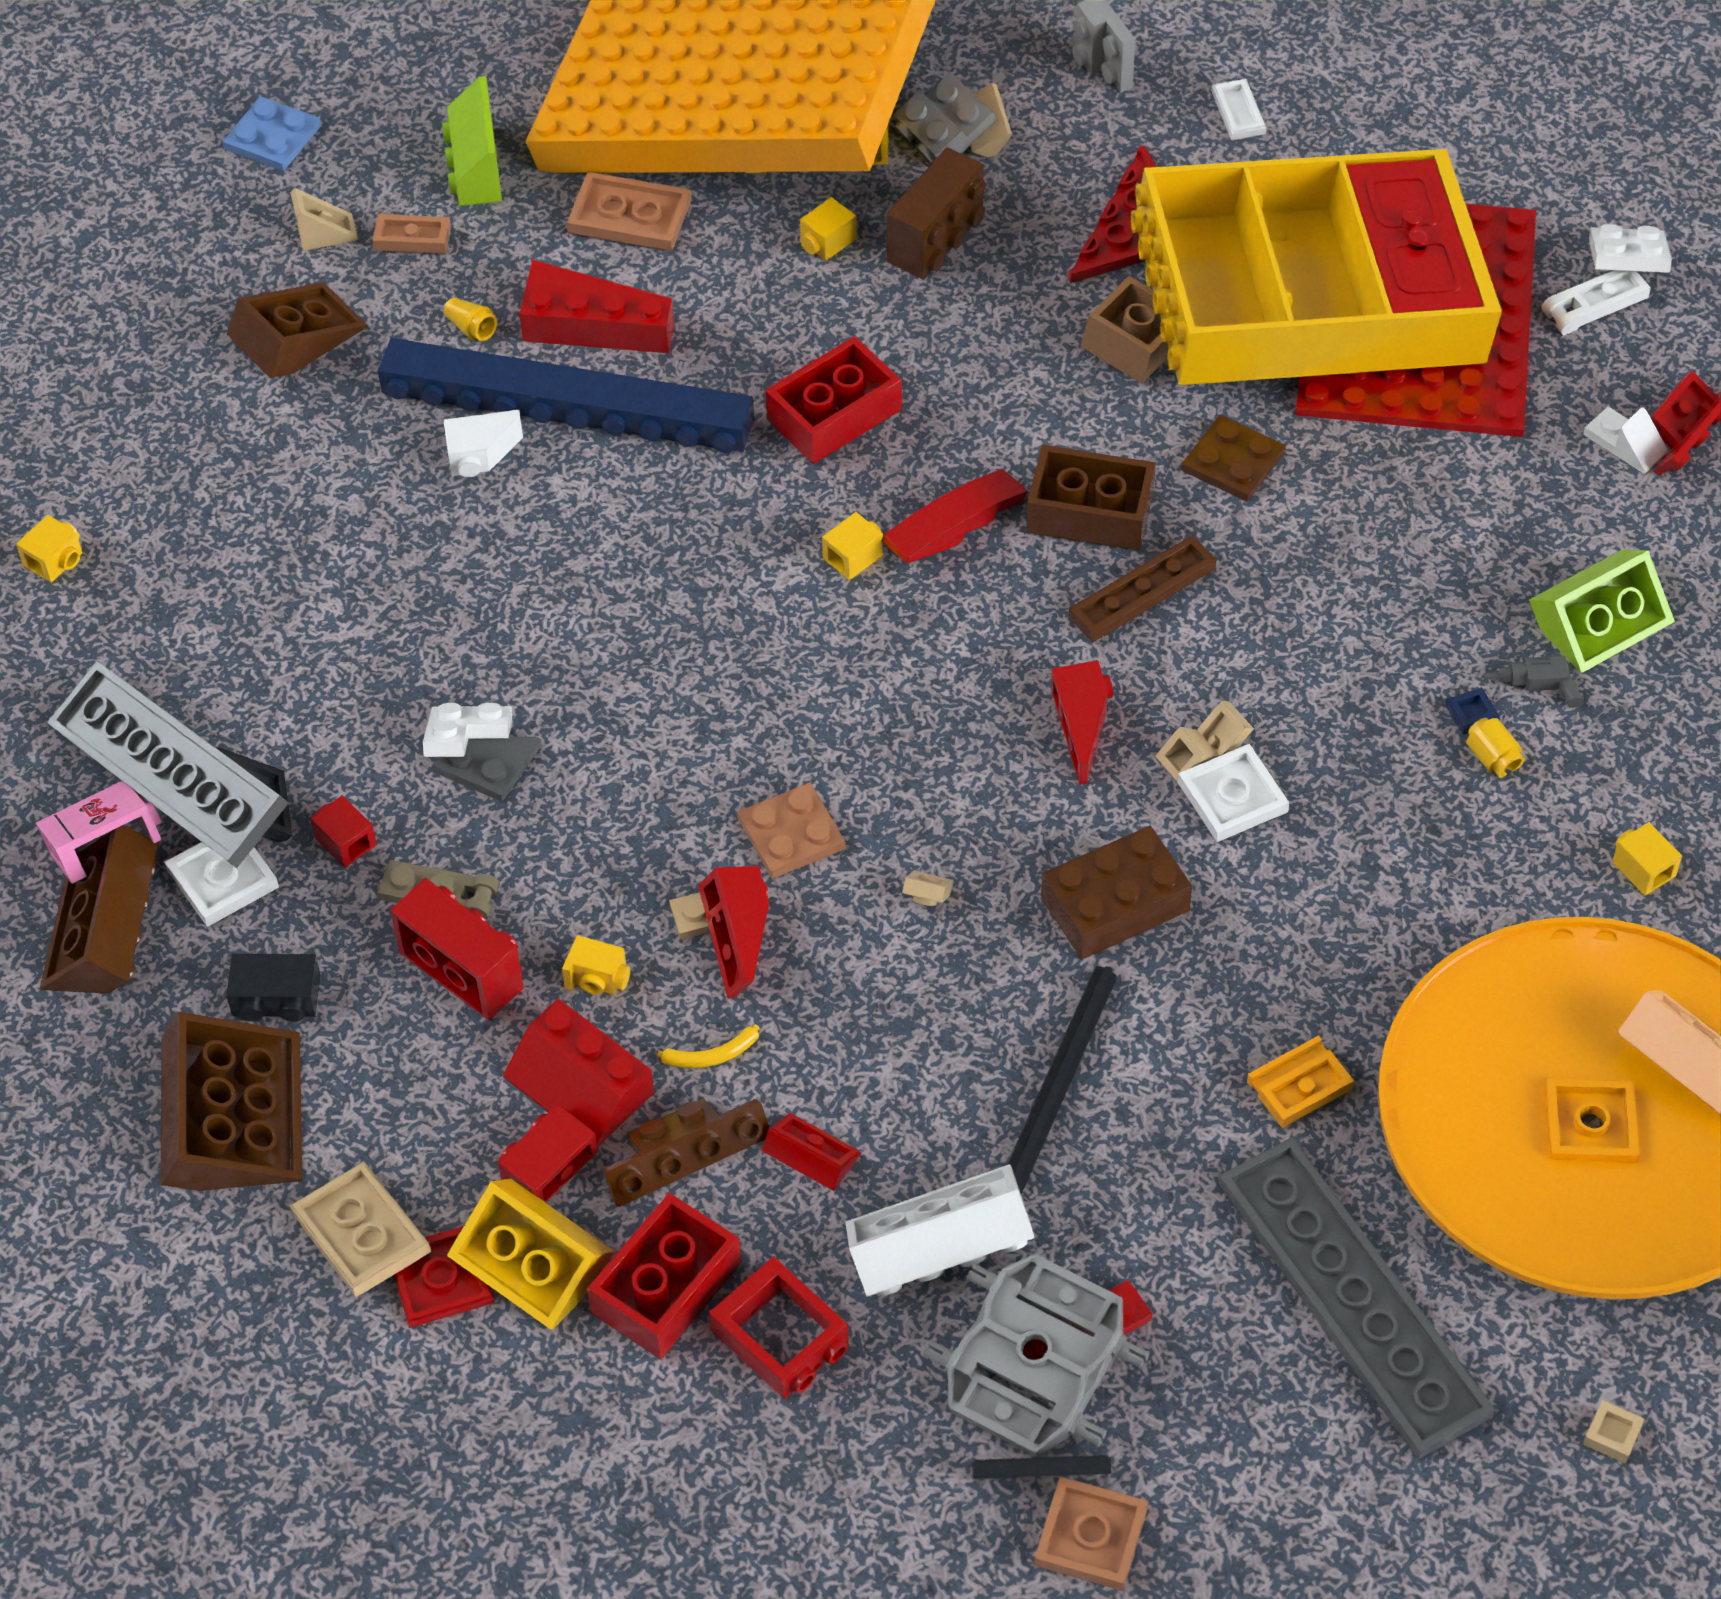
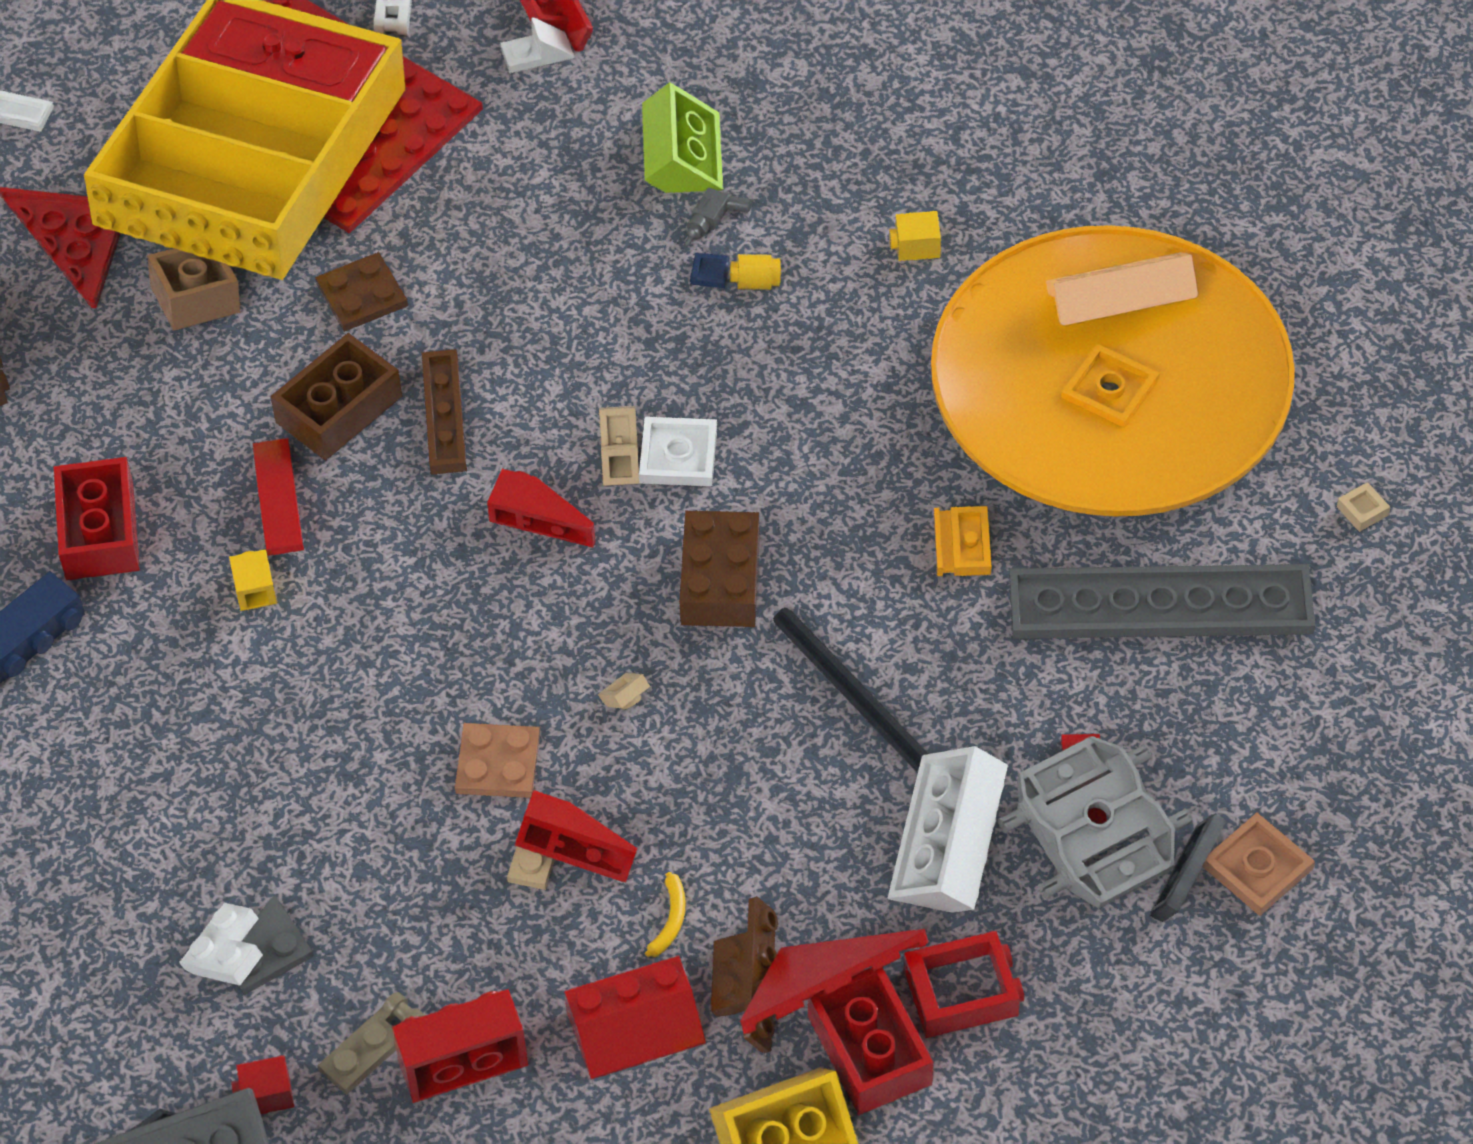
camera: 60 degrees left, 0 degrees up
(549, 1153) = (697, 1074): red brick -> none
(595, 967) = (539, 957): yellow brick -> none
(698, 1187) = (827, 966): none -> red tile
(810, 1150) = (809, 891): red slope -> none

